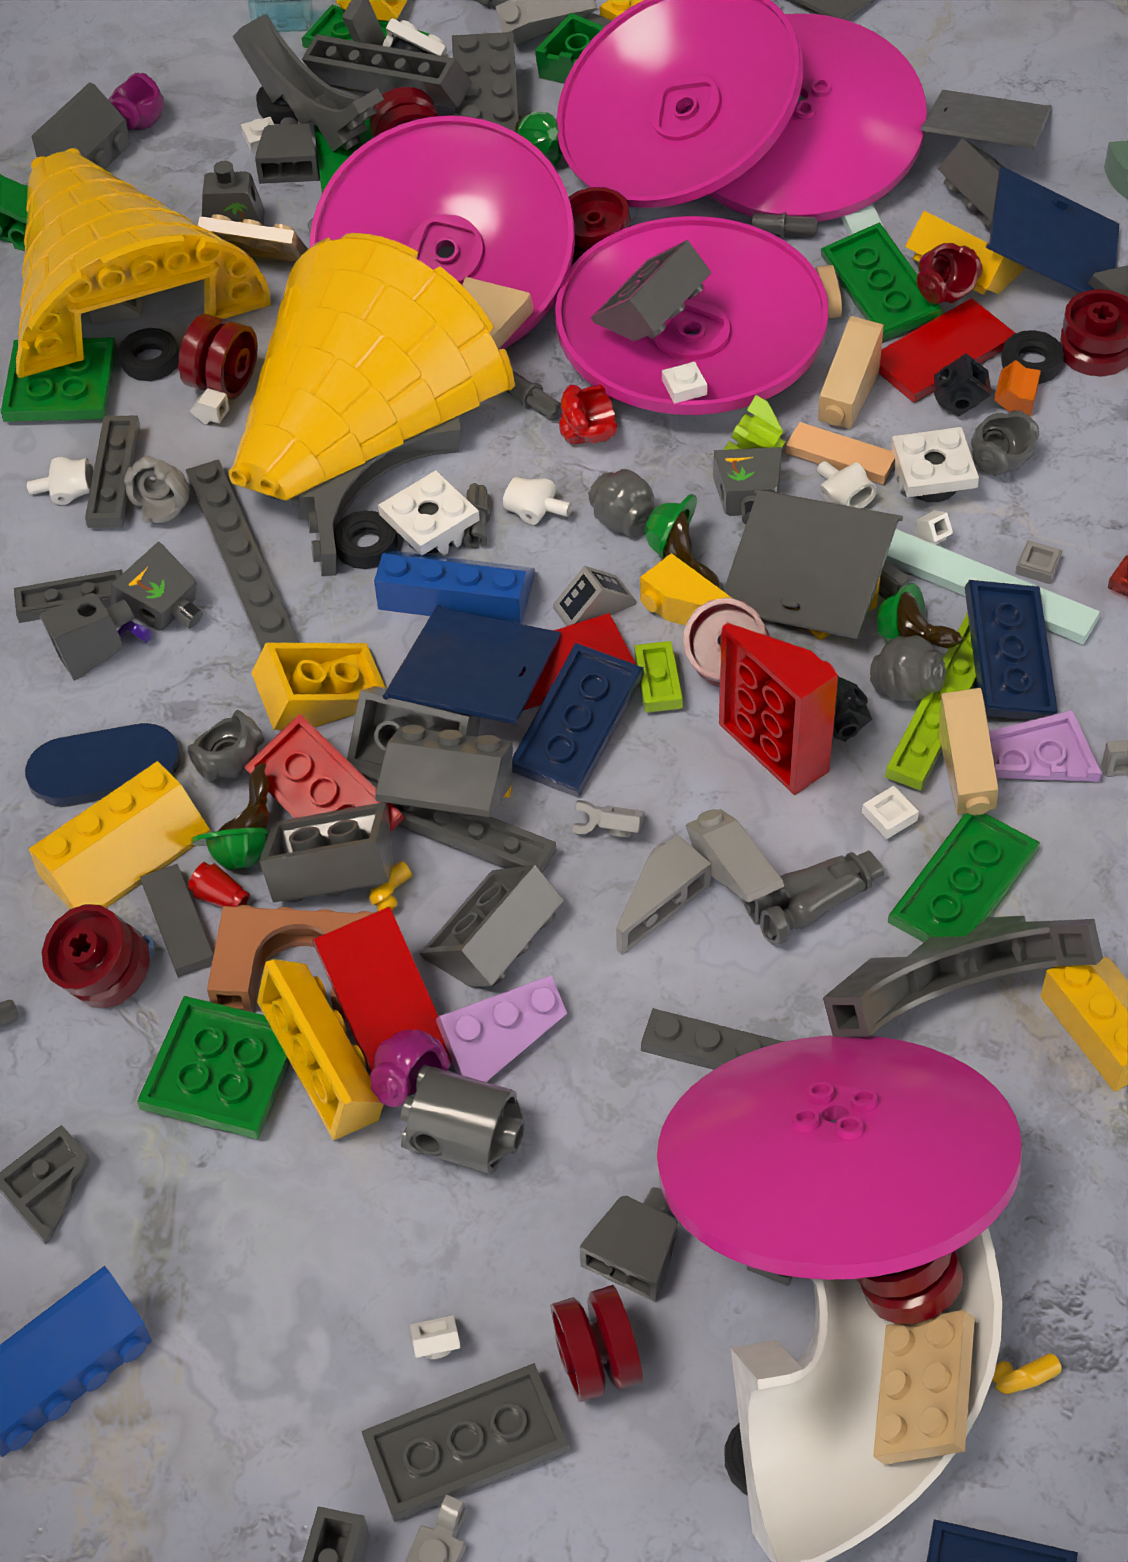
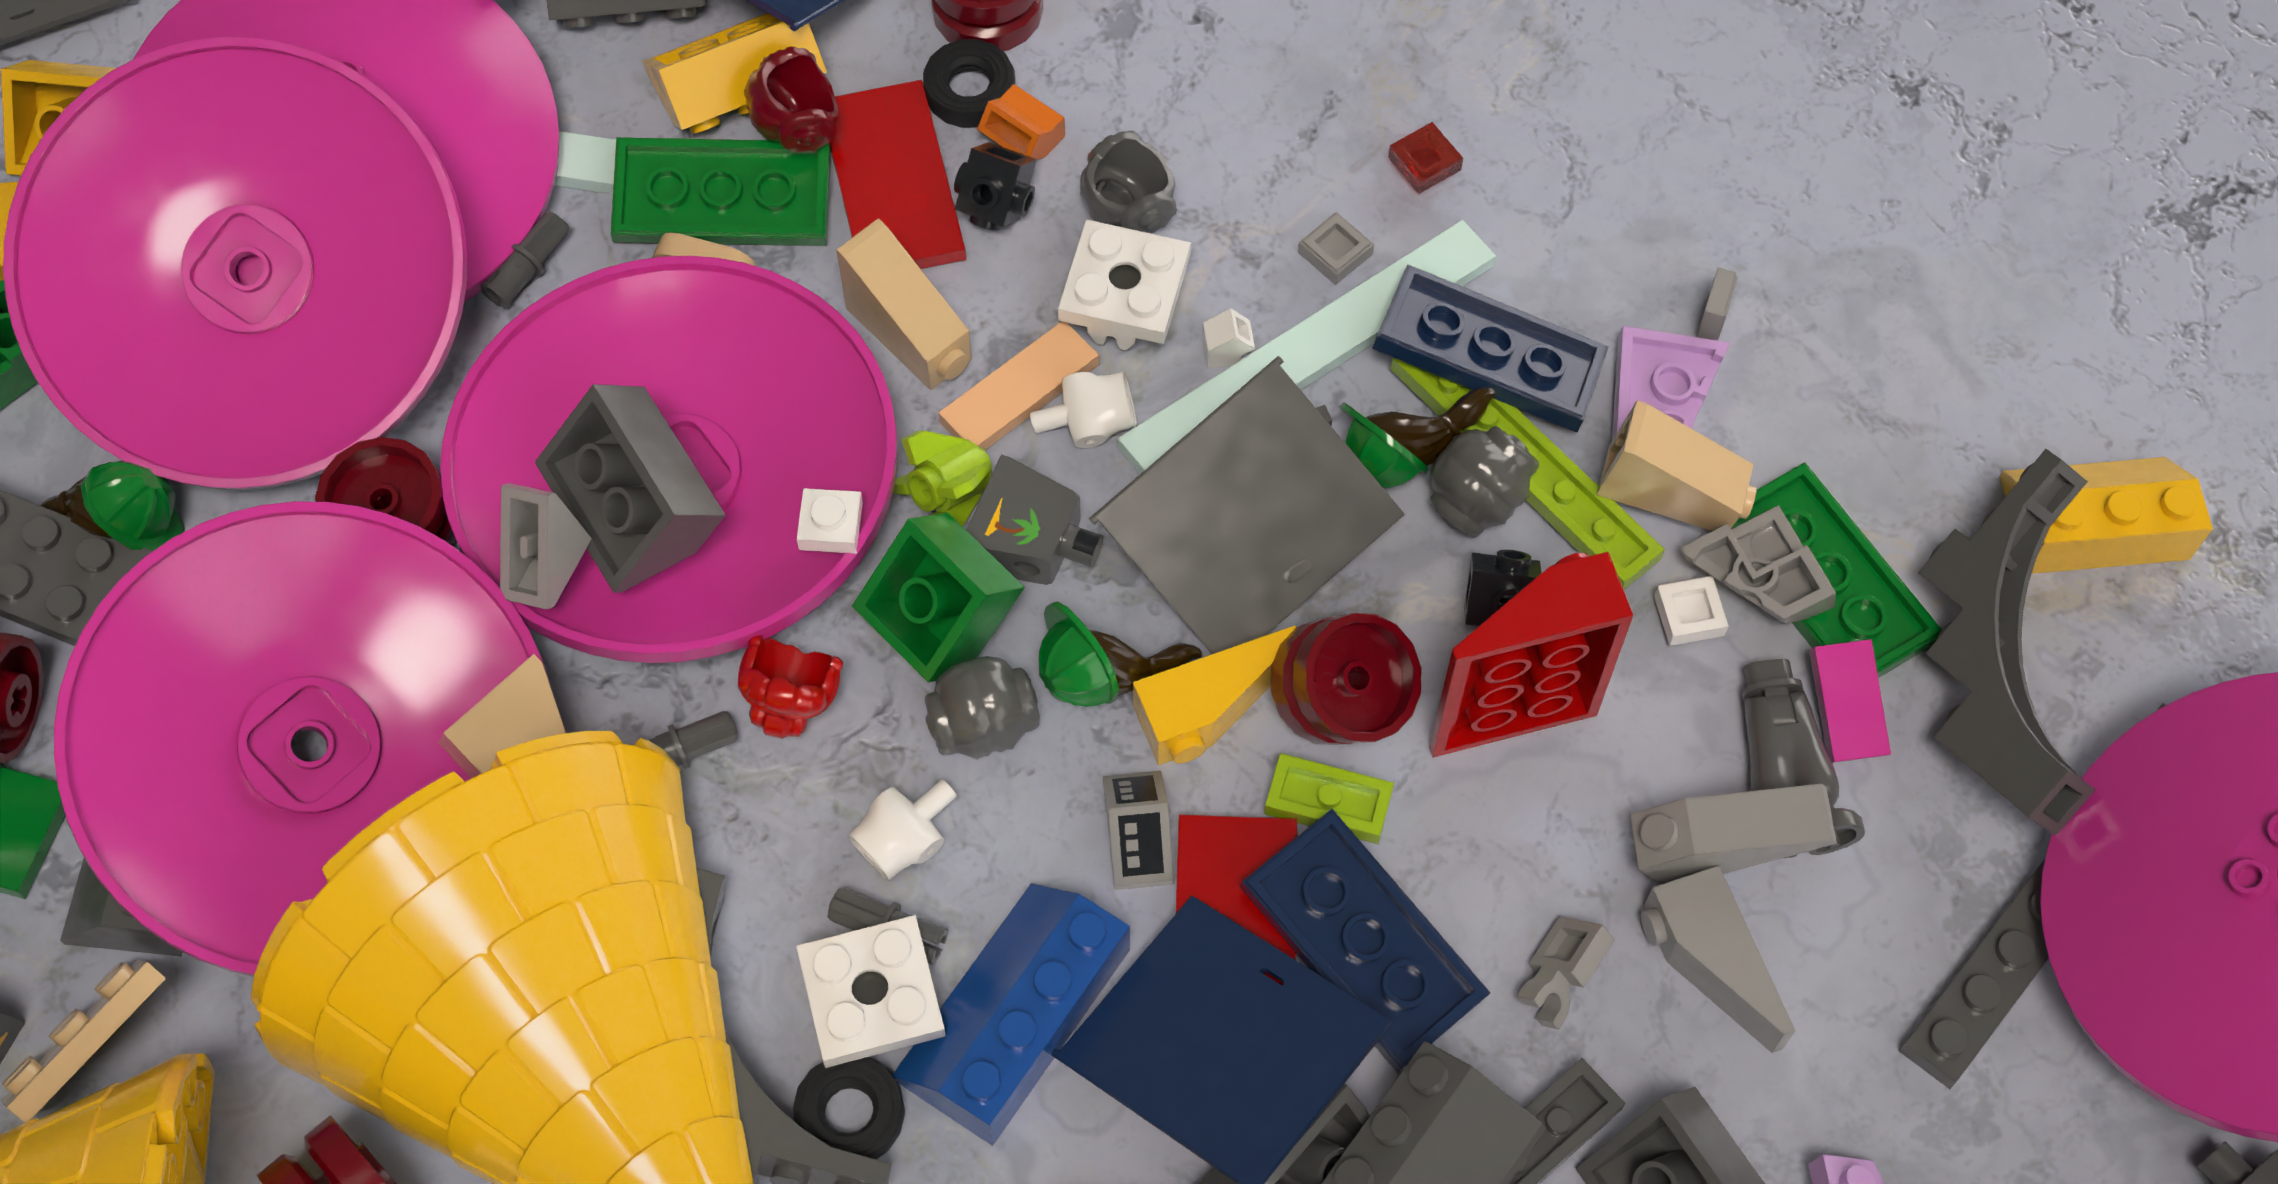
camera: 70 degrees left, 10 degrees up
(592, 272) = (537, 545): none -> light grey slope
(675, 449) = (937, 595): none -> green brick
(874, 911) = (1850, 701): none -> dark pink tile
(941, 836) = (1765, 566): none -> light grey slope

